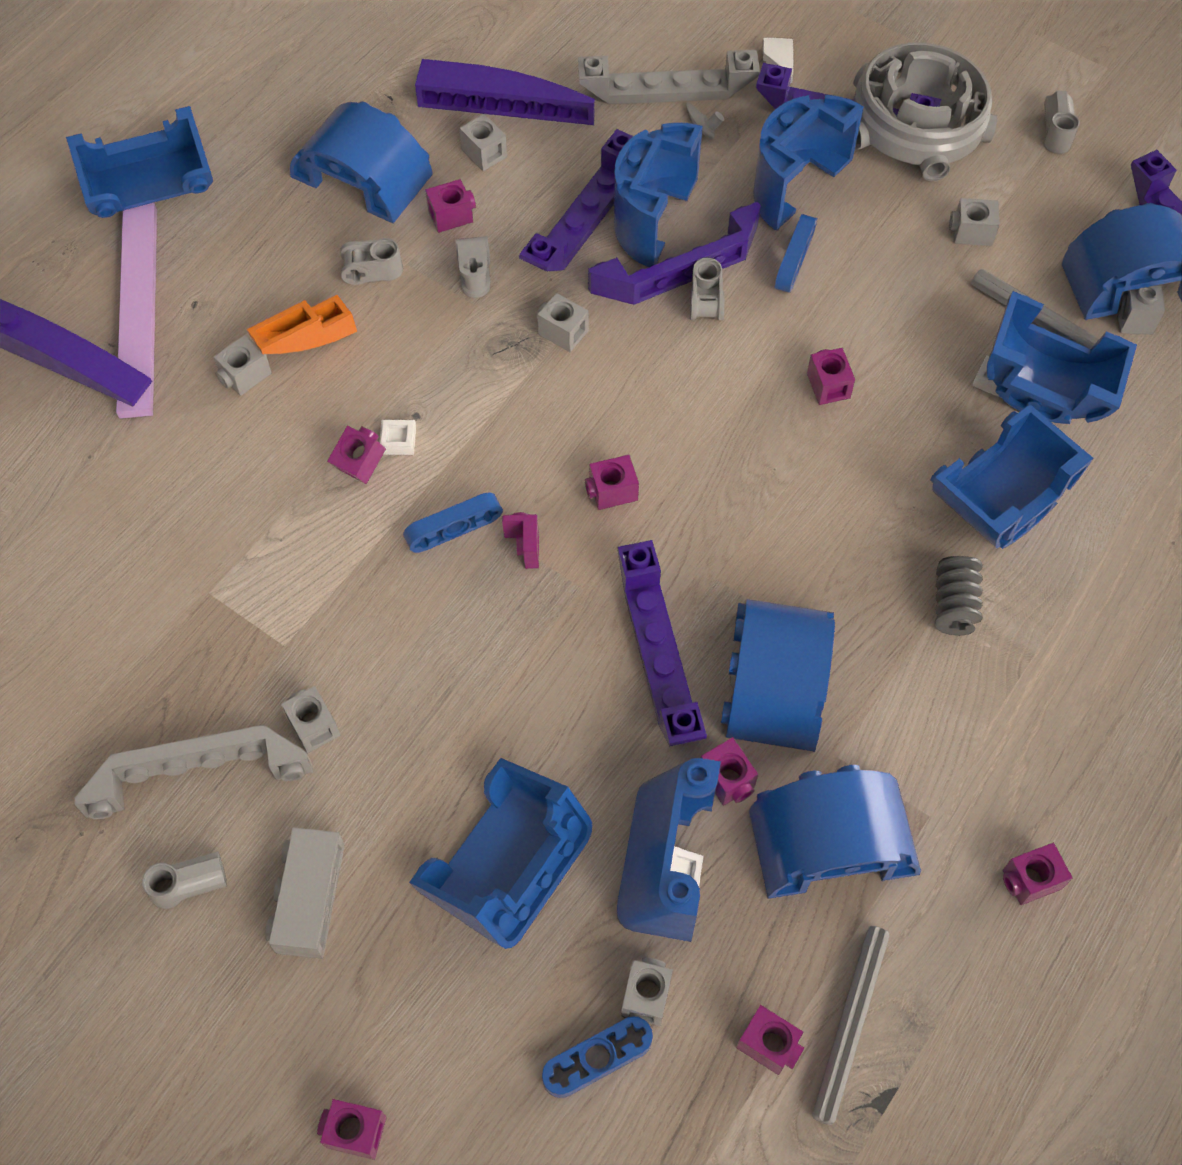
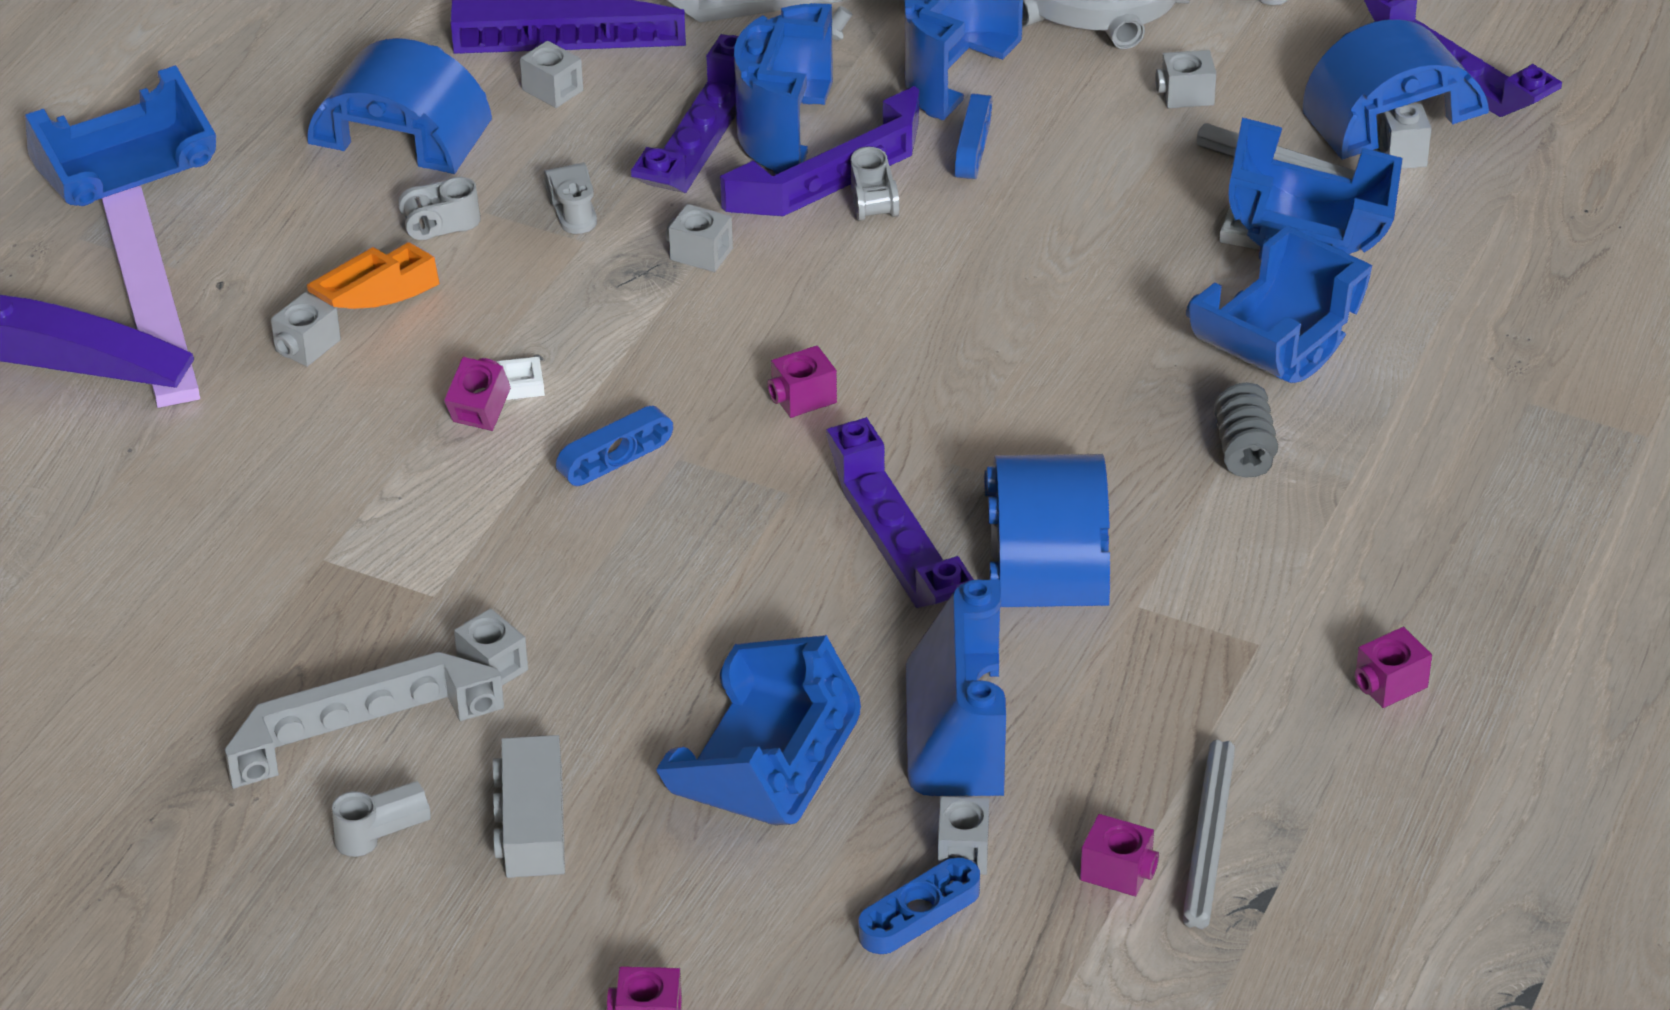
camera: 10 degrees left, 20 degrees down
(450, 205) = (526, 141): magenta brick -> none
(526, 531) = (707, 441): magenta bracket -> none
(734, 759) = (1021, 629): magenta brick -> none
(832, 830) = (1141, 643): blue cylinder -> none
(835, 385) = (1044, 248): magenta brick -> none

